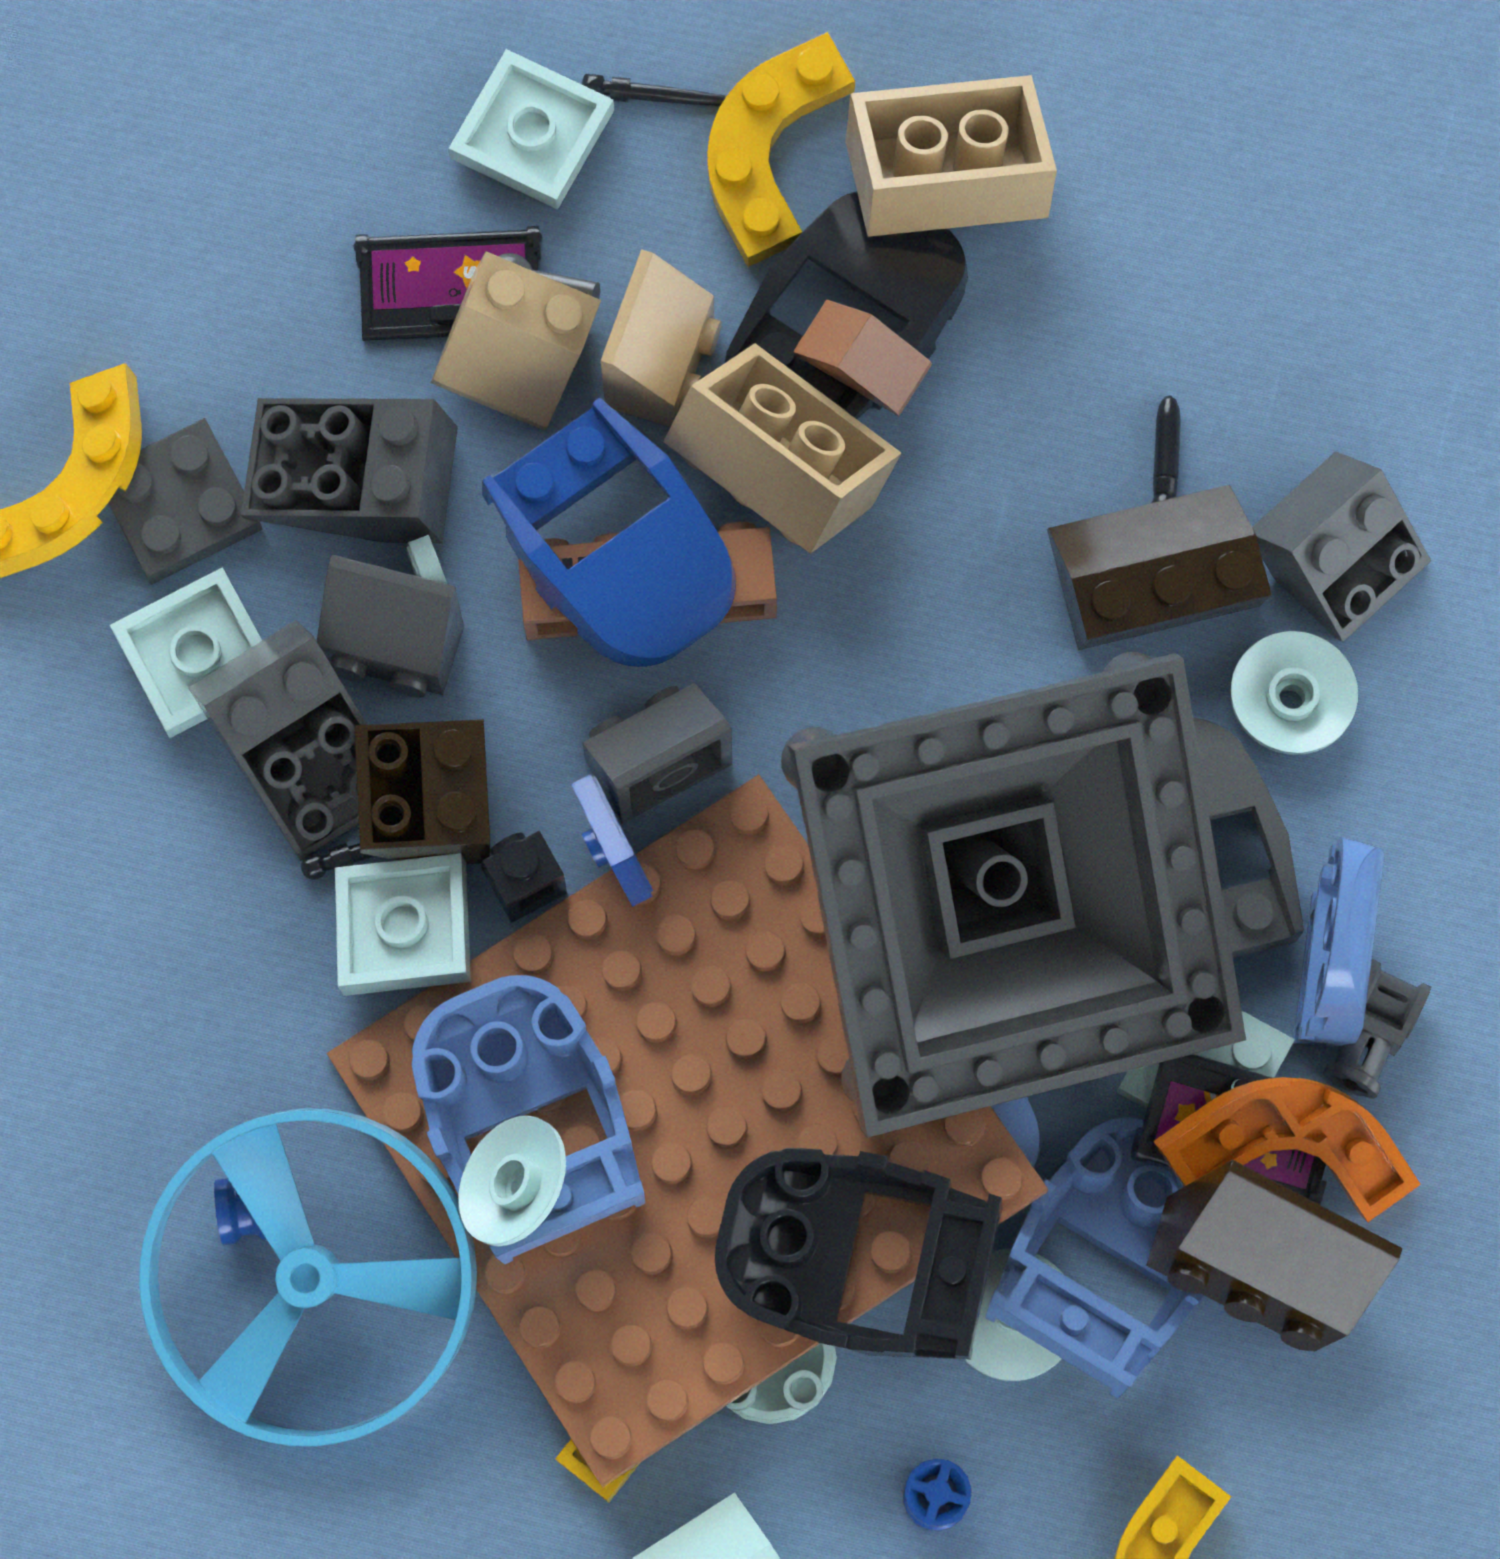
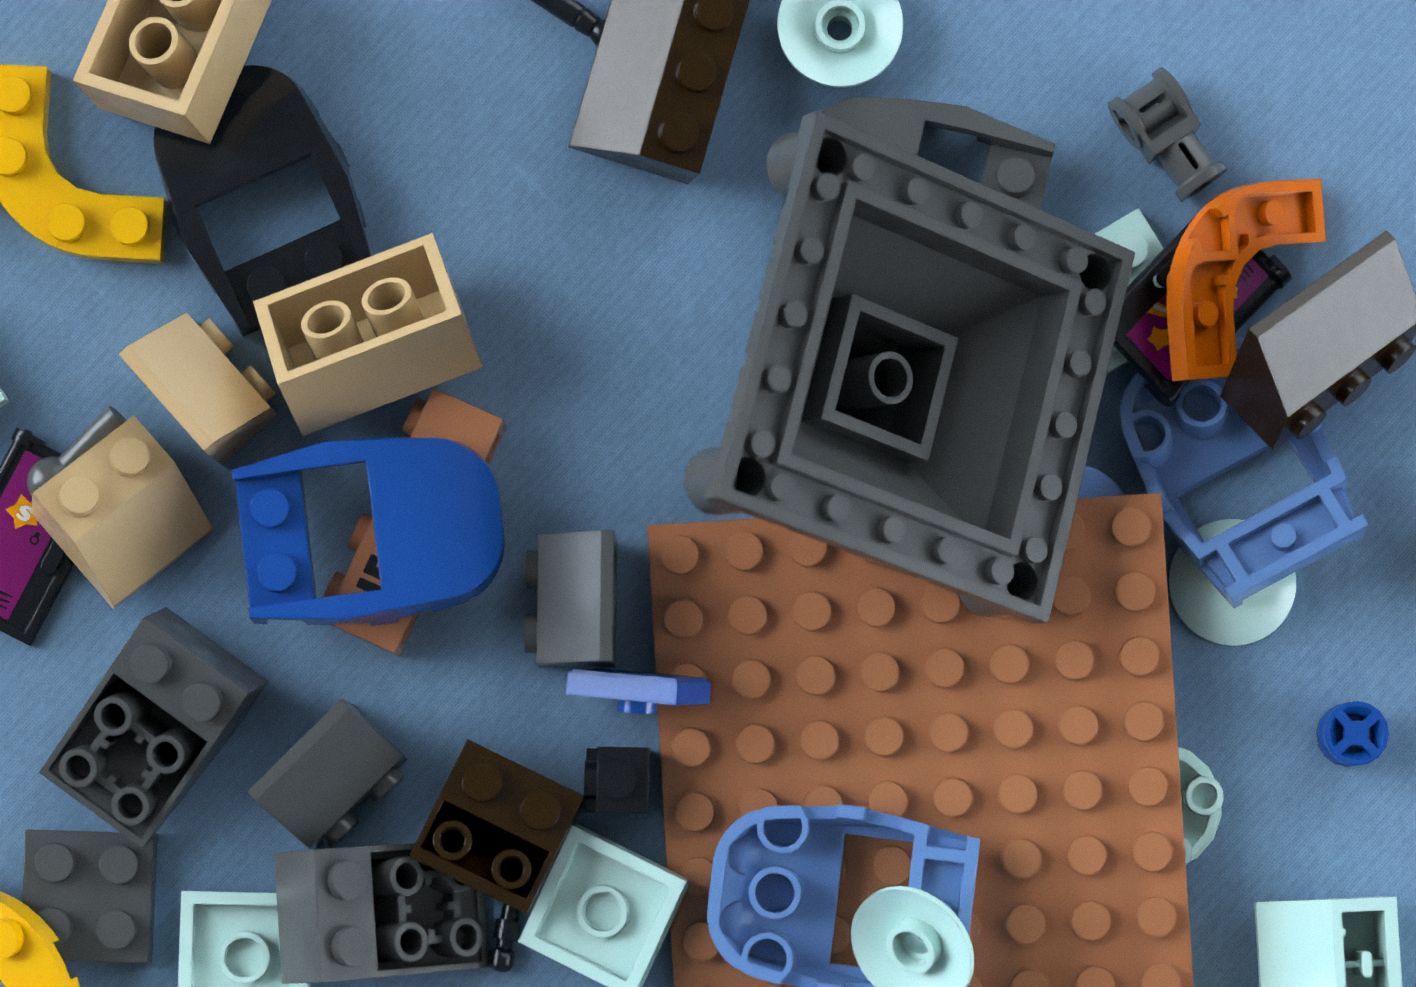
camera: 60 degrees left, 10 degrees up
(424, 560) = (292, 709): light aqua tile -> none
(793, 1238) = (1088, 734): black slope -> none
(863, 355) = (321, 214): nougat slope -> none
(1339, 946) = (1094, 129): medium blue slope -> none

